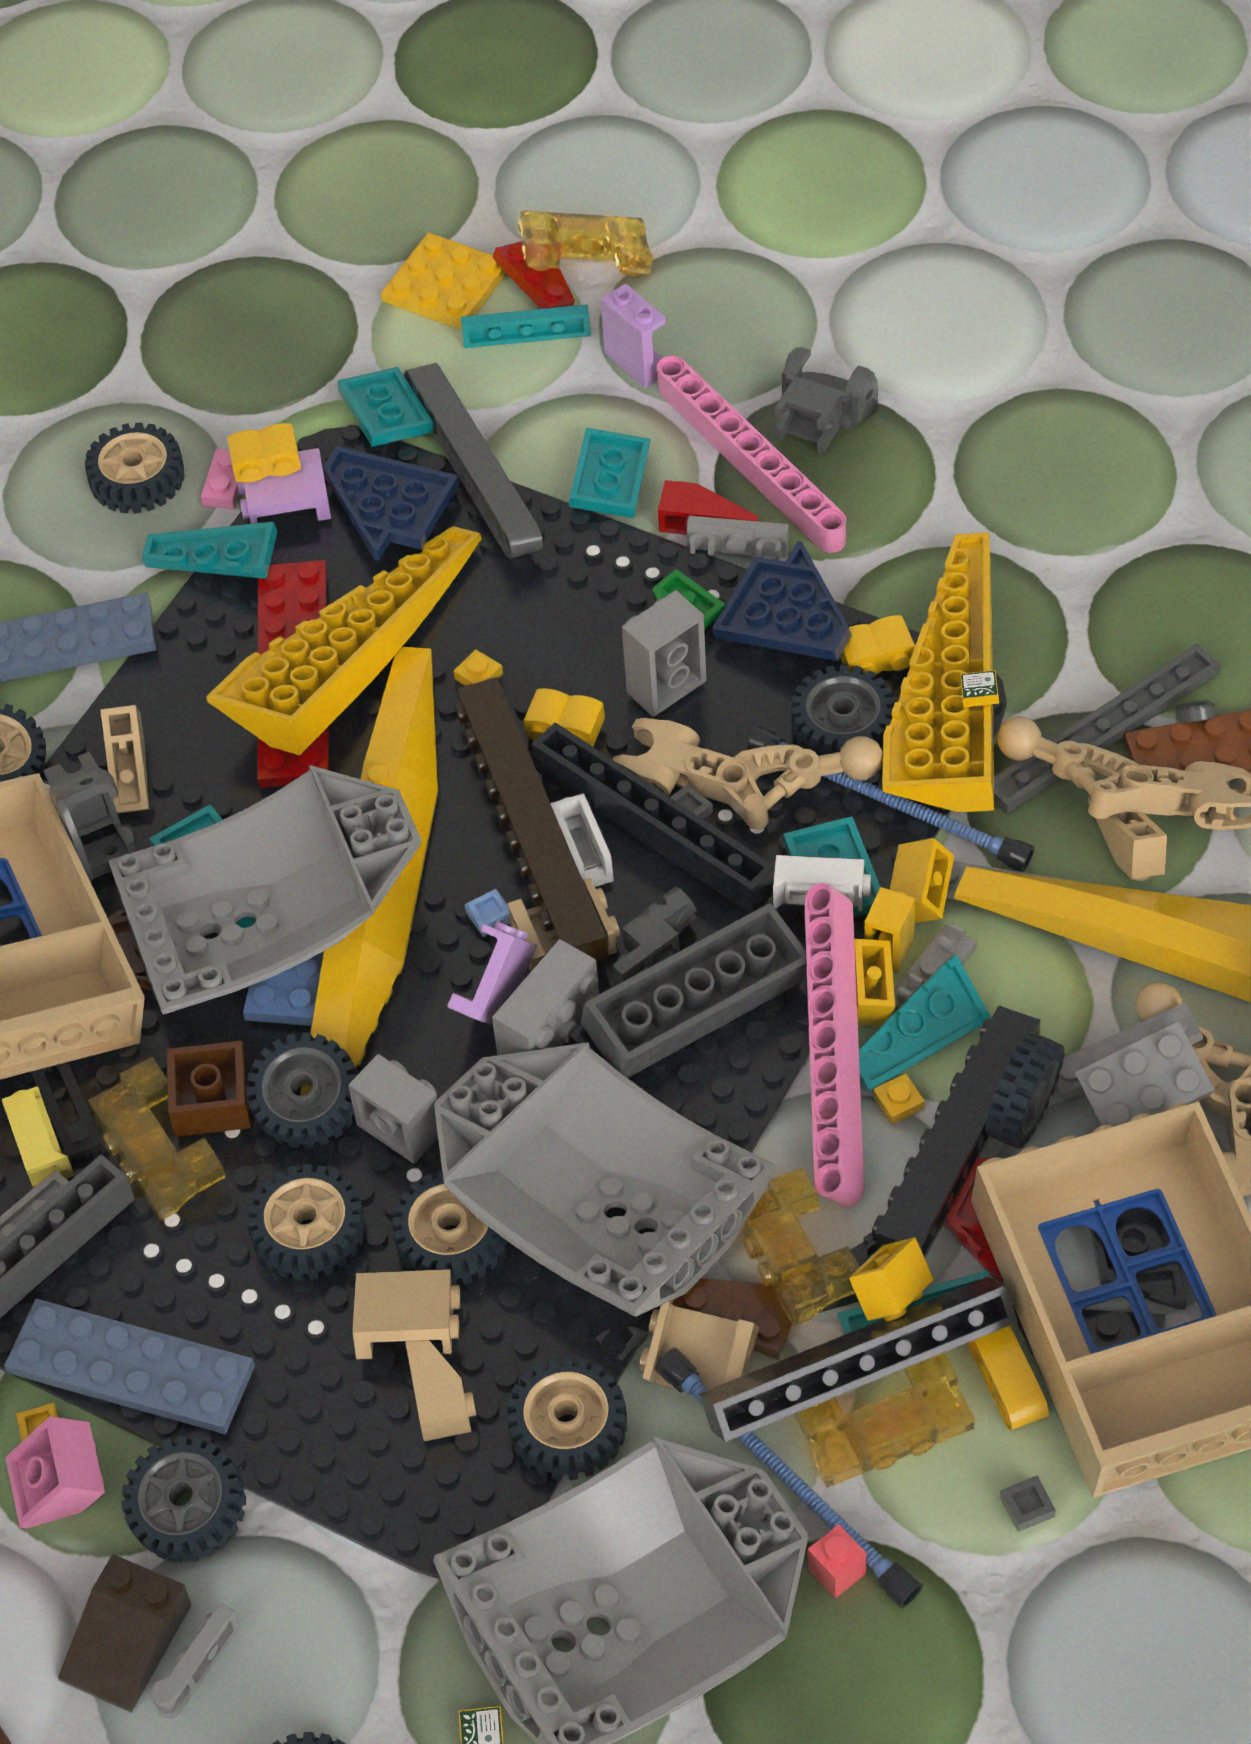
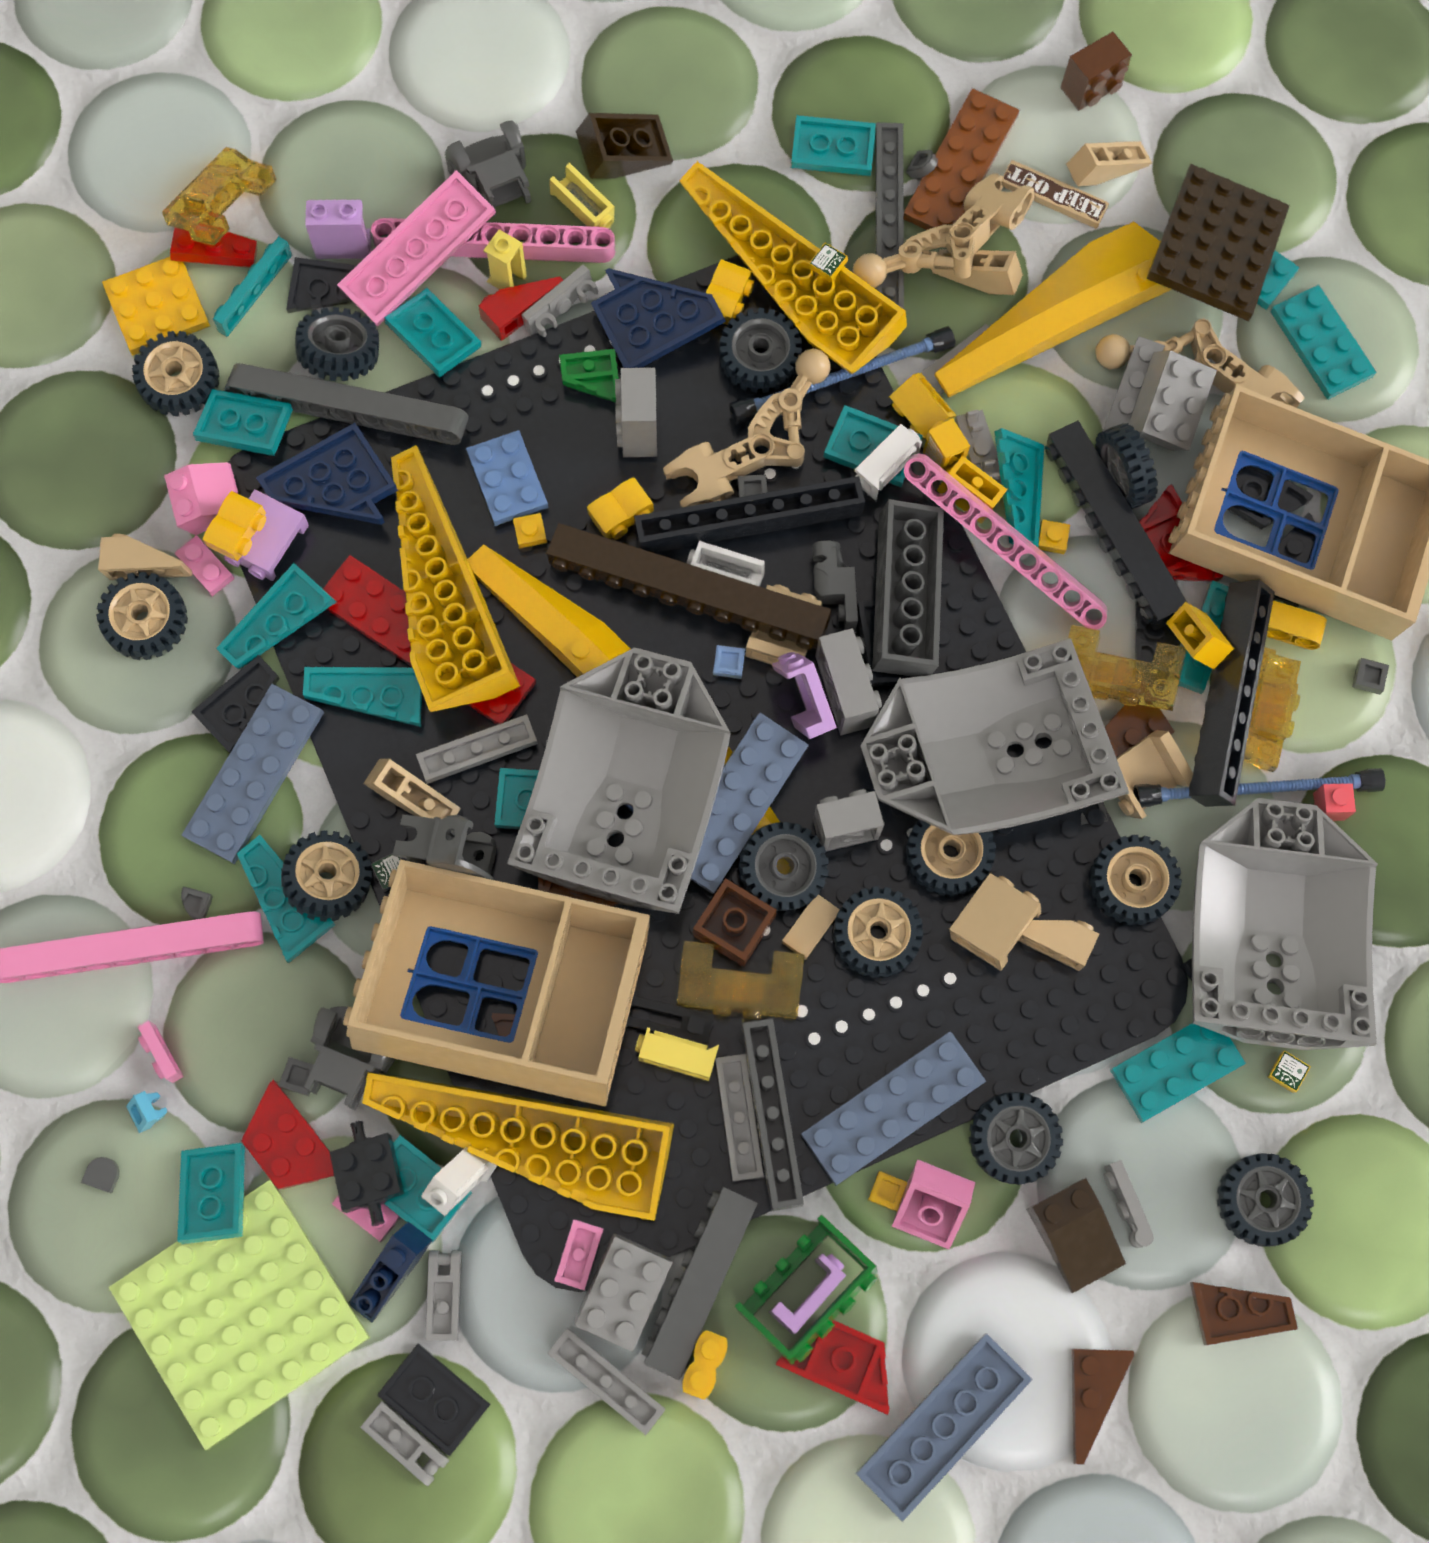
camera: 60 degrees left, 20 degrees up
(102, 580) = (235, 702): none -> black wing
(181, 418) = (126, 555): none -> tan slope
(196, 654) = (369, 690): none -> teal wing
(210, 774) = (476, 749): none -> light grey plate
(259, 1163) = (811, 926): none -> tan tile
(291, 407) = (198, 493): none -> bright pink slope
(339, 1002) = (744, 795): none -> sand blue plate
(388, 333) = (169, 355): none -> wheel
(389, 1613) = (1175, 1069): none -> teal plate
(515, 620) = (507, 477): none -> medium blue plate
(523, 412) = (337, 344): none -> black wheel
(582, 373) = (316, 285): none -> black wing
(673, 397) = (416, 248): none -> bright pink plate
(726, 460) = (504, 259): none -> light yellow window
(860, 487) = (583, 199): none -> light yellow window
(954, 476) = (622, 144): none -> dark brown slope
(1134, 629) = (833, 145): none -> teal plate

